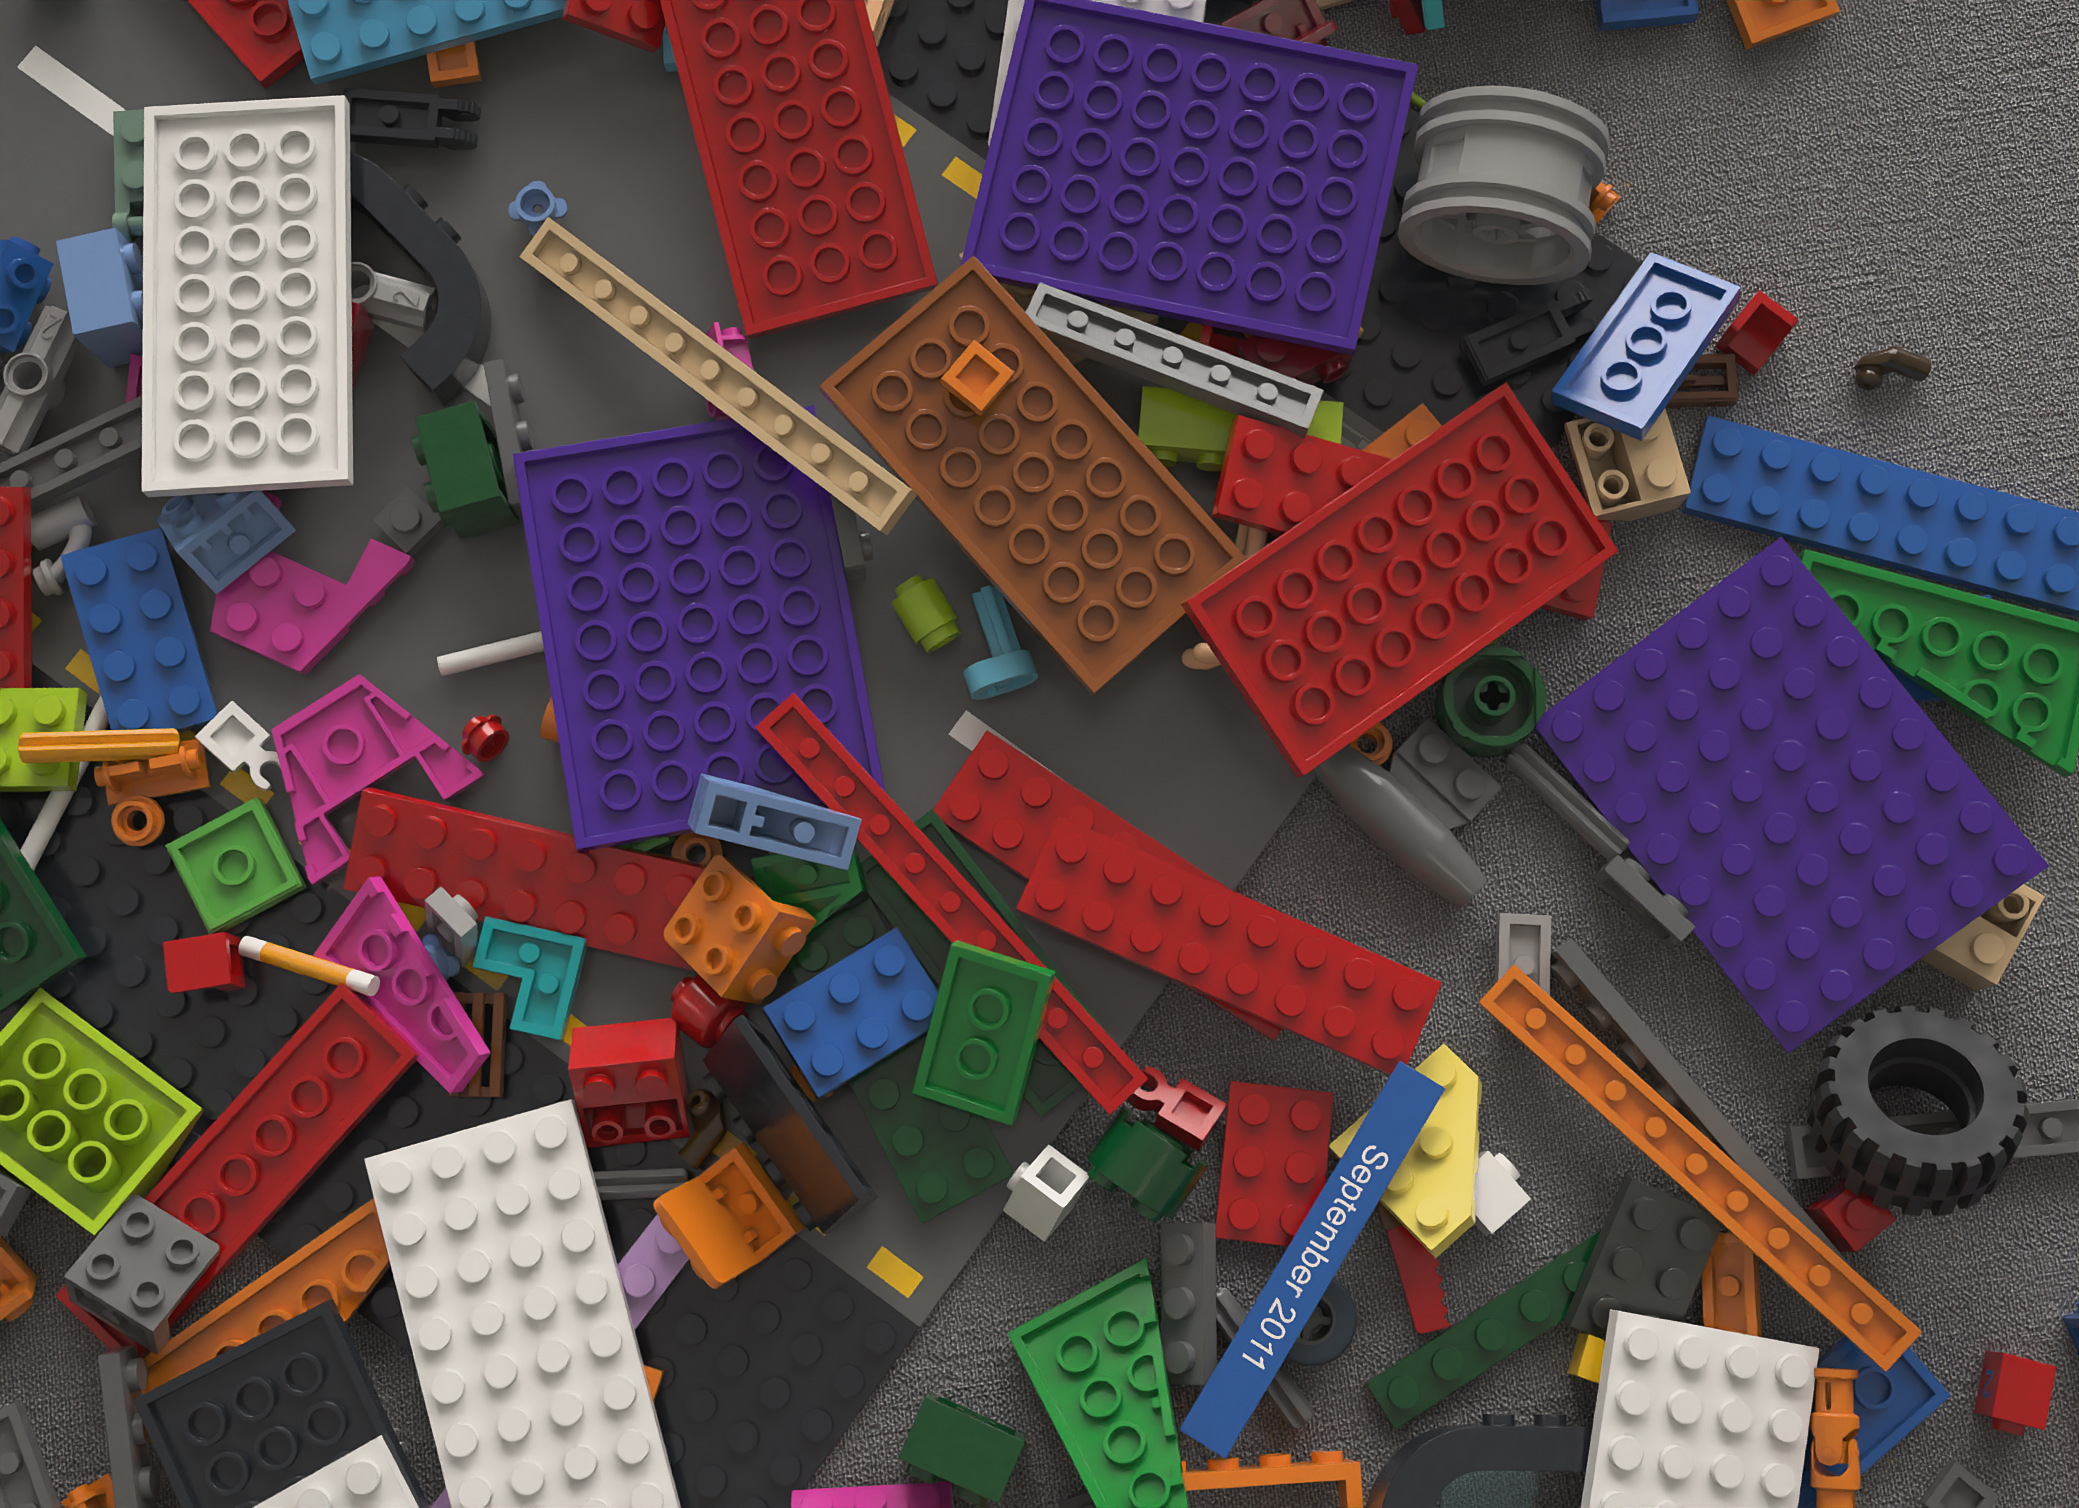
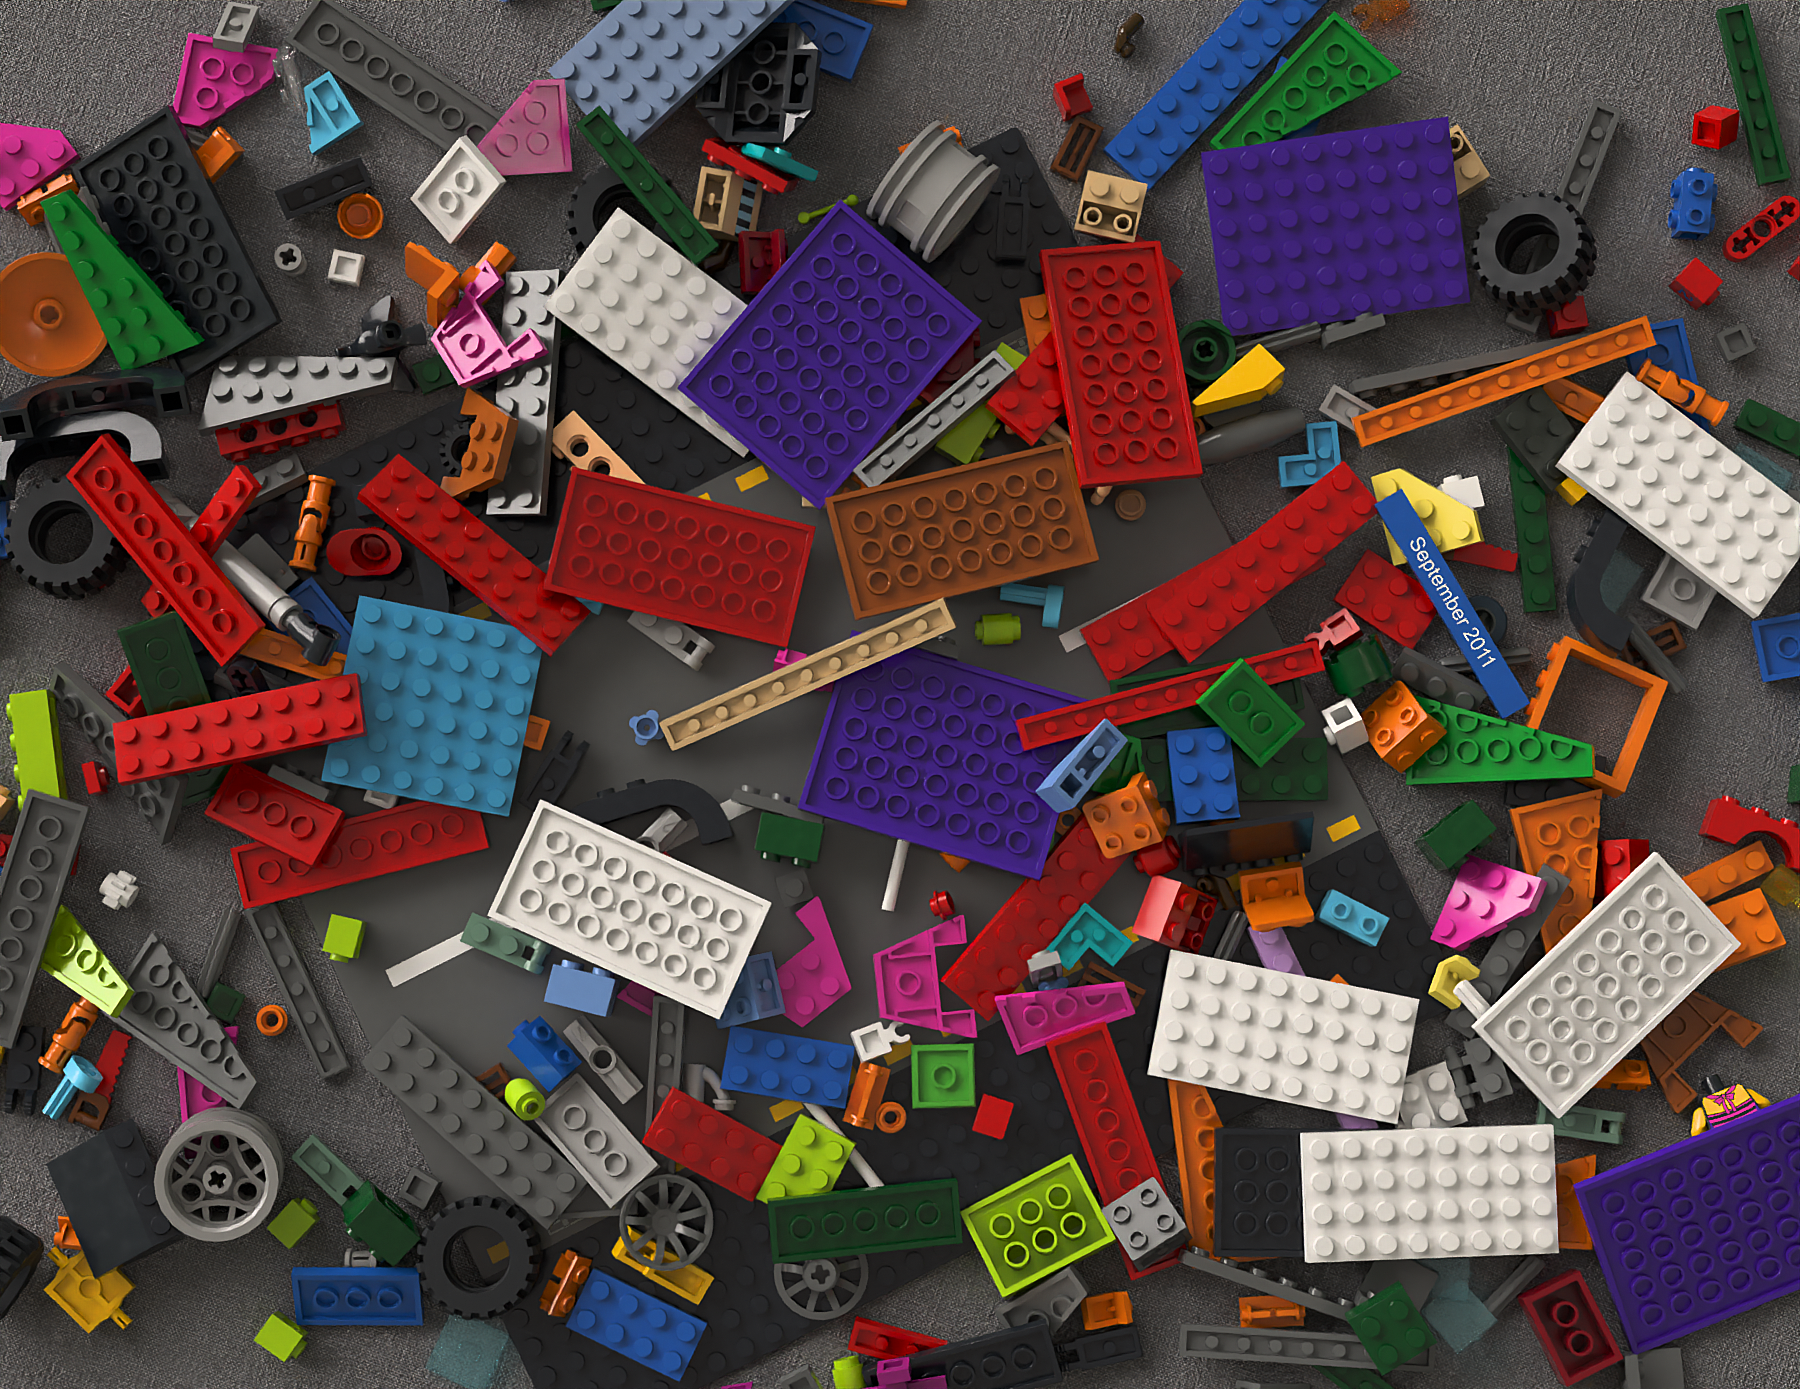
camera: 65 degrees left, 5 degrees up
(98, 745) = (843, 1114): light orange axle -> none
(309, 965) = (1023, 1059): light orange bar -> none
(681, 184) = (673, 637): none -> light grey plate
(756, 1350) = (1351, 918): none -> medium azure brick
(977, 377) = (899, 531): orange plate -> none
(1084, 1276) = (1400, 727): none -> orange bracket
(1209, 711) = (1130, 504): none -> medium nougat plate
(1439, 953) = (1321, 457): none -> dark azure plate
(1474, 776) = (1243, 383): none -> yellow slope
(1645, 346) = (1054, 162): plate -> none

